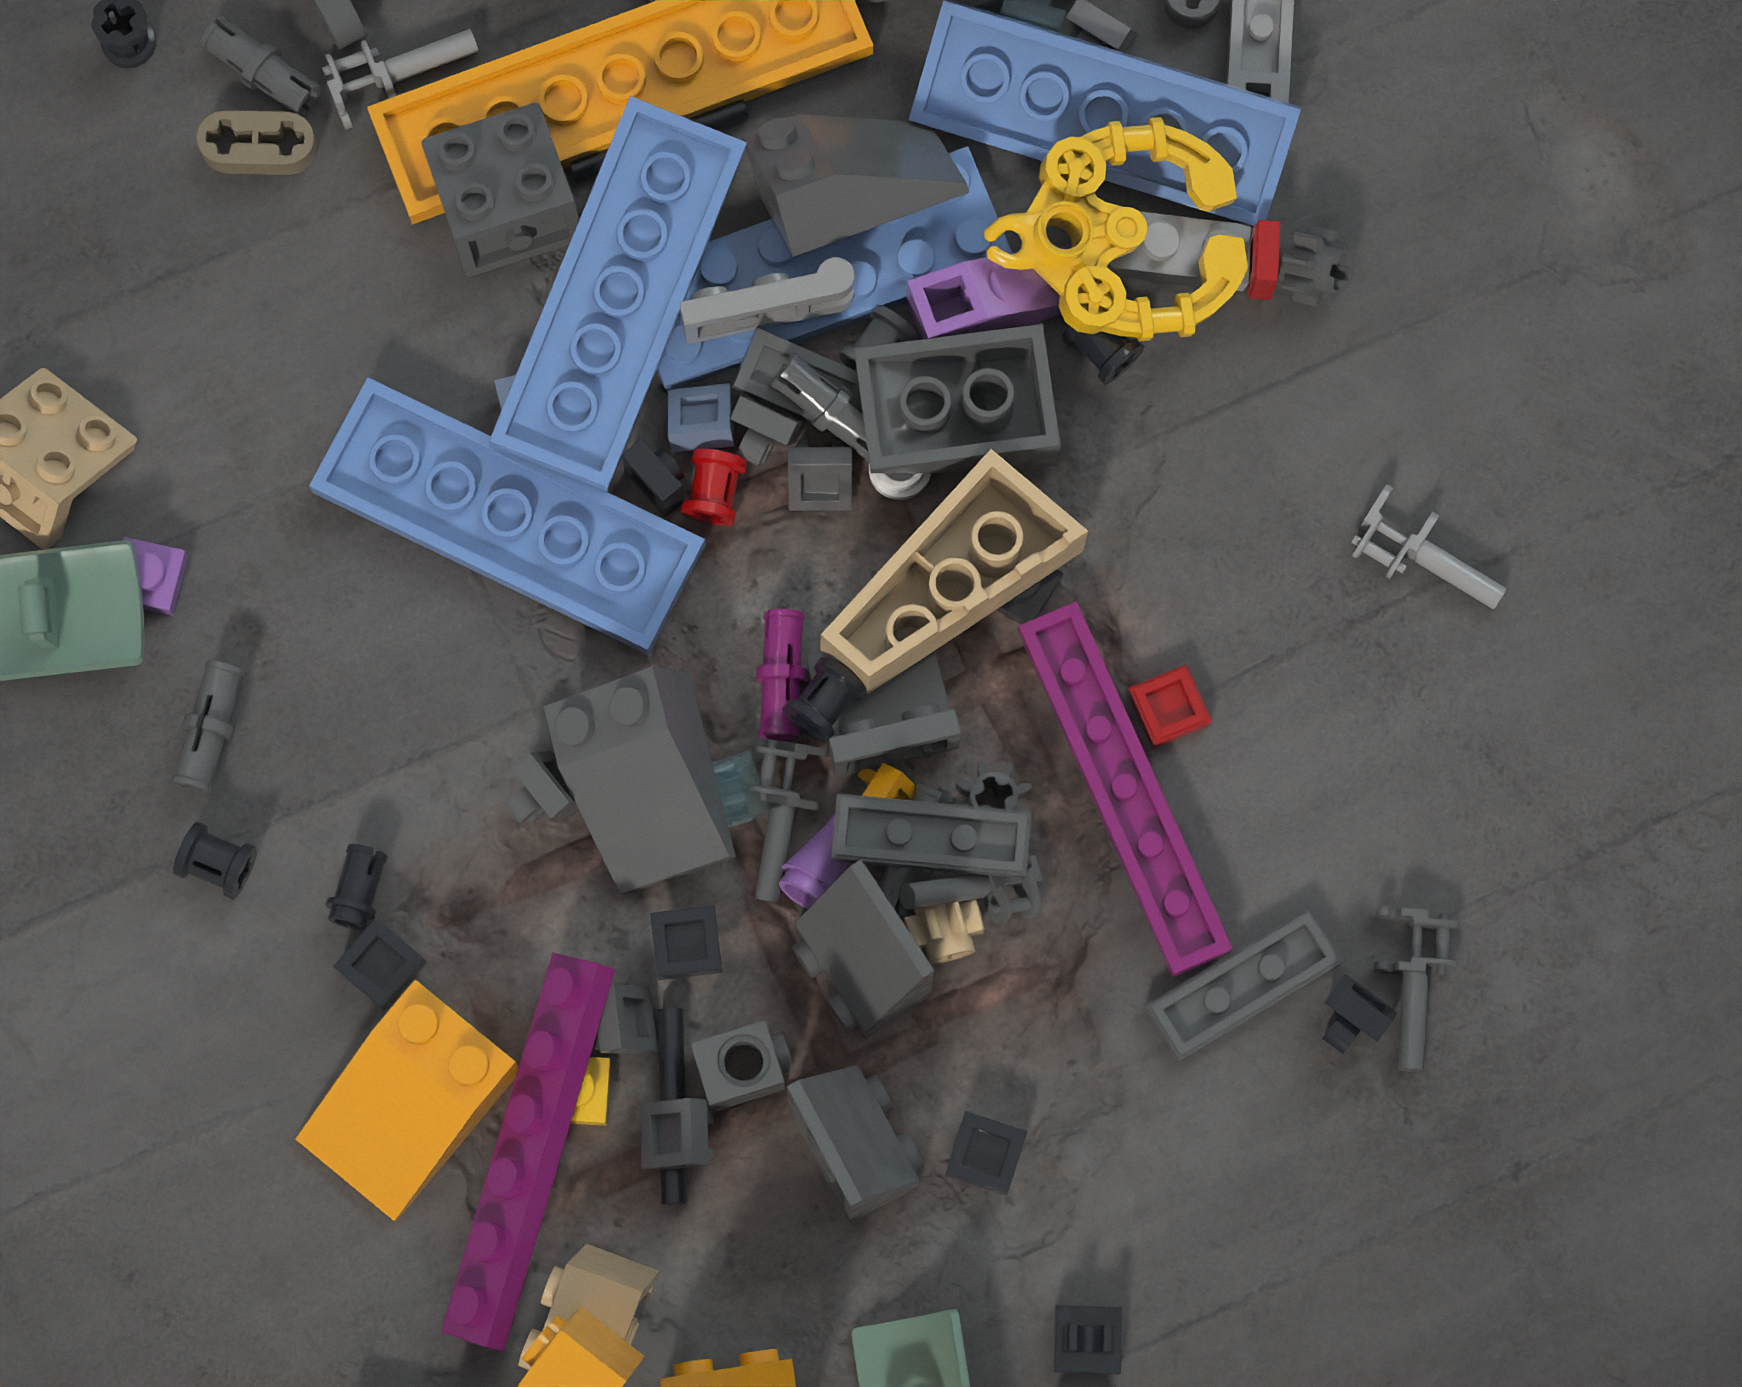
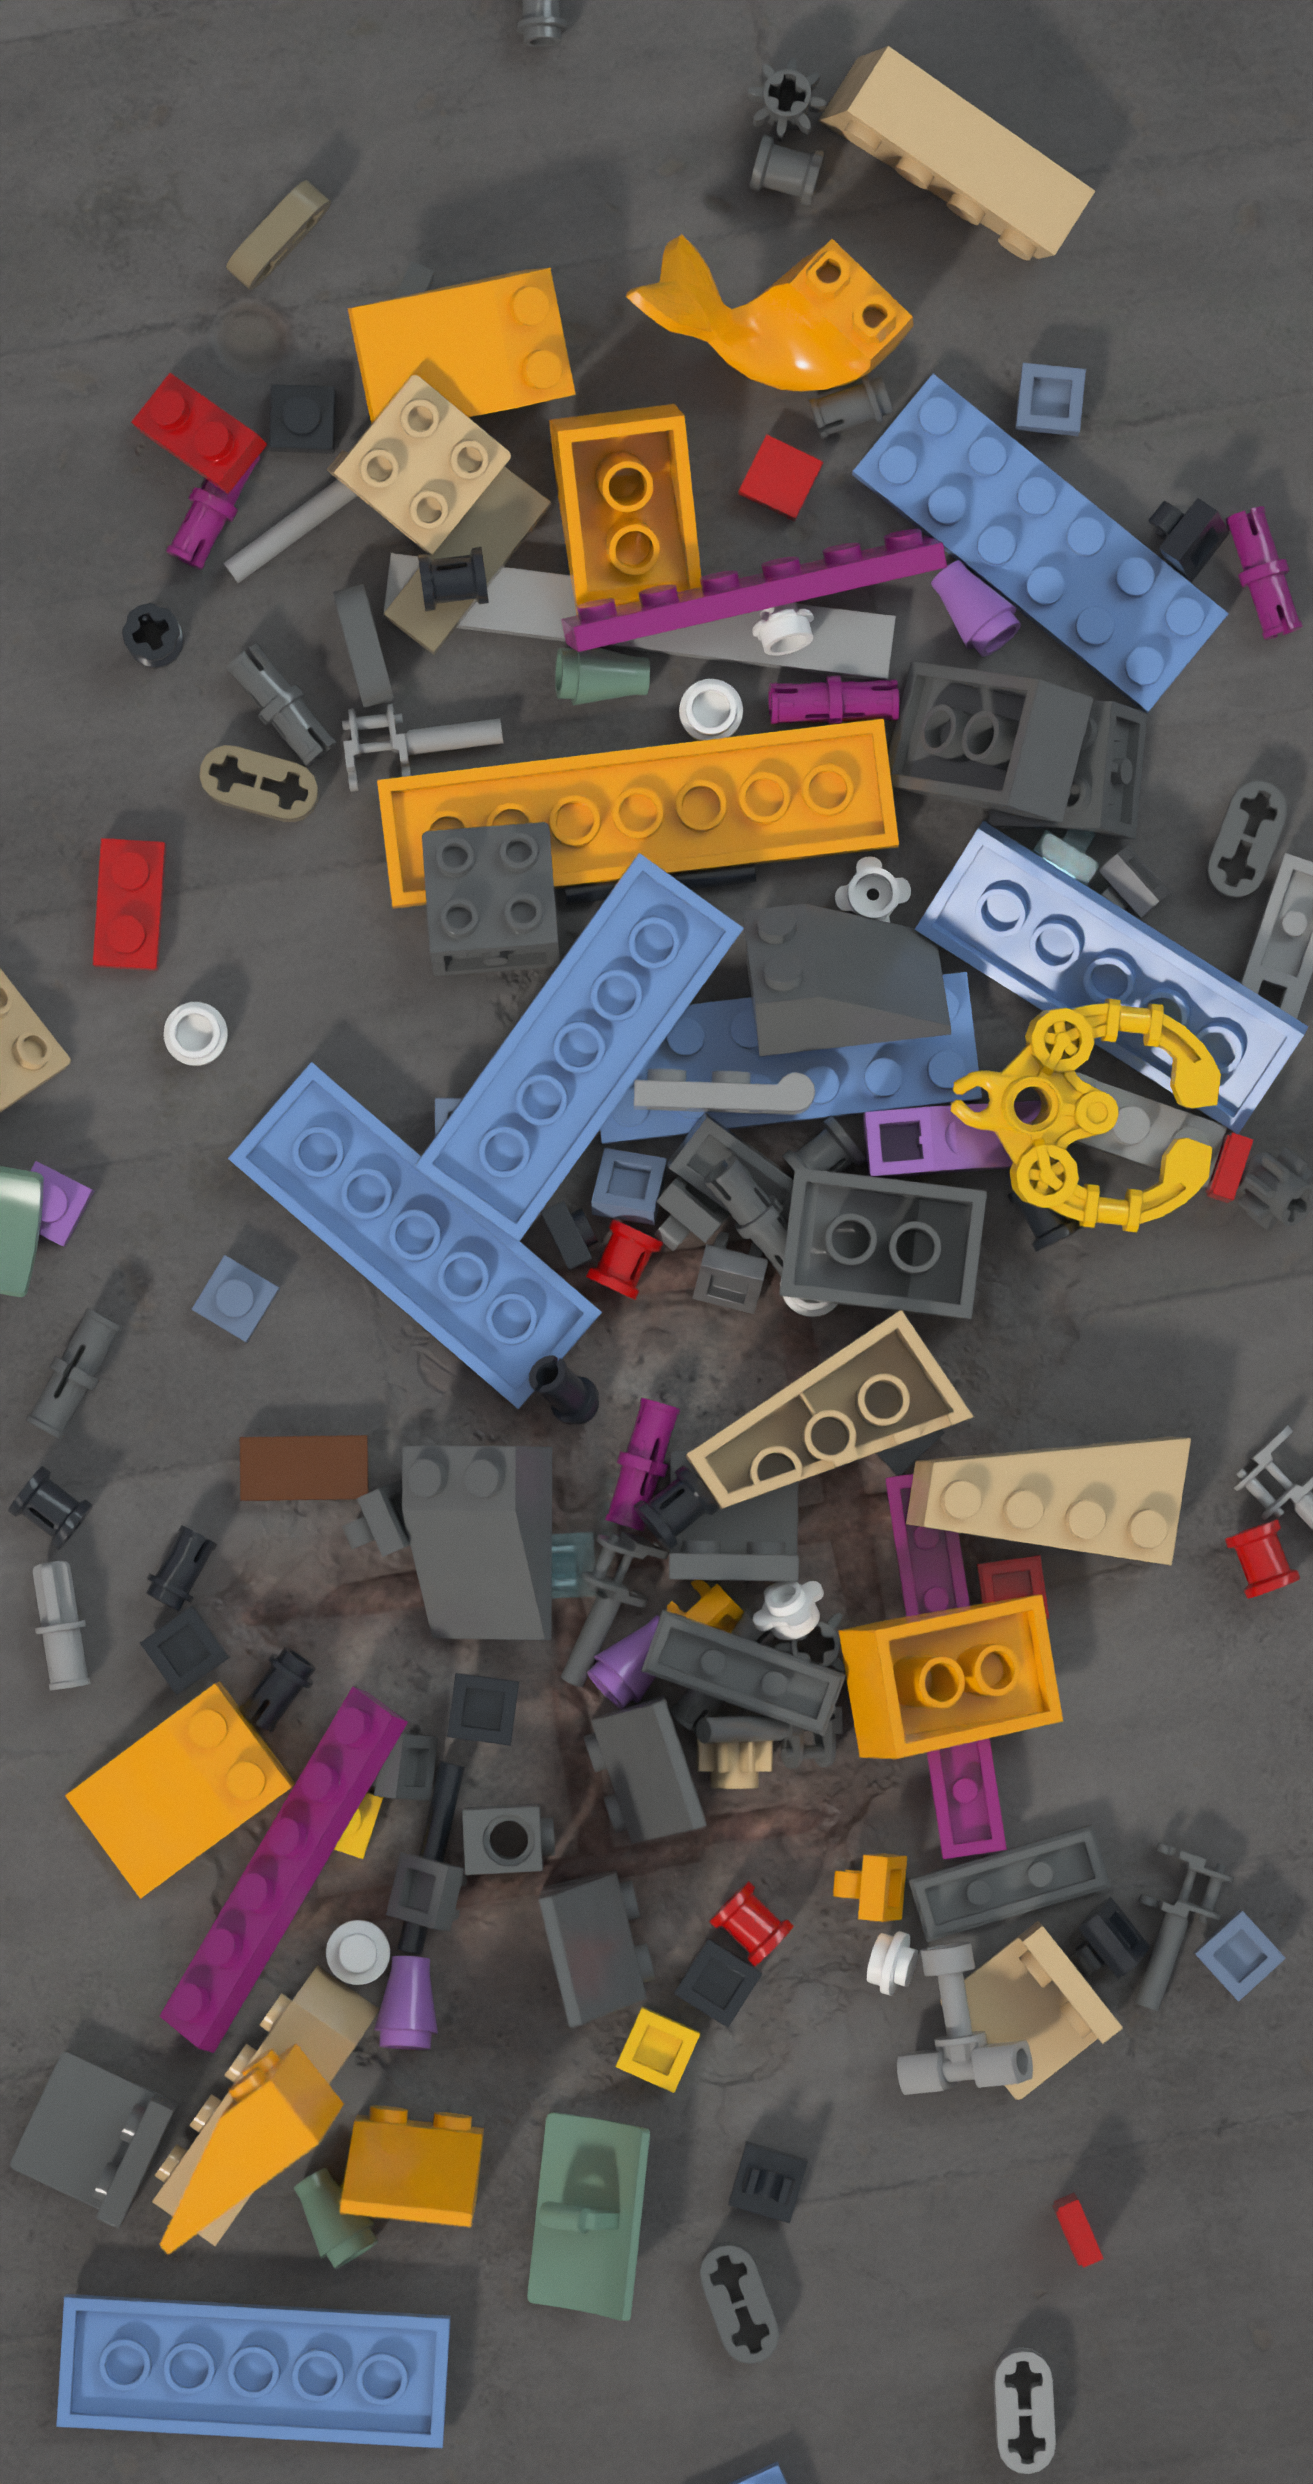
camera: 15 degrees right, 10 degrees up
(159, 282) = (129, 904): none -> red plate
(251, 383) = (195, 1033): none -> white plate
(251, 973) = (60, 1625): none -> light grey axle
(349, 620) = (236, 1298): none -> sand blue plate
(453, 762) = (304, 1467): none -> reddish brown tile
(480, 977) = (280, 1686): none -> black pin
(623, 1216) = (358, 1952): none -> white plate
(686, 1259) = (407, 2007): none -> medium lavender cone
(696, 627) = (571, 1396): none -> black pin
(861, 83) = (872, 876): none -> white plate
(944, 1234) = (657, 2049): none -> yellow plate
(960, 766) = (789, 1609): none -> white plate
(1003, 1086) = (751, 1923): none -> red bush
(1116, 1018) = (877, 1886): none -> light orange tile
(1131, 790) = (950, 1677): none -> light orange slope
(1151, 1088) = (892, 1962): none -> white plate
(1200, 596) = (1076, 1498): none -> tan wedge
(1244, 1155) = (962, 2052): none -> light grey bar
(1300, 1099) = (1037, 1997): none -> tan bracket
(1399, 612) = (1262, 1559): none -> red bush
(1406, 1304) = (1077, 2230): none -> red tile
(1486, 994) = (1239, 1955): none -> sand blue plate

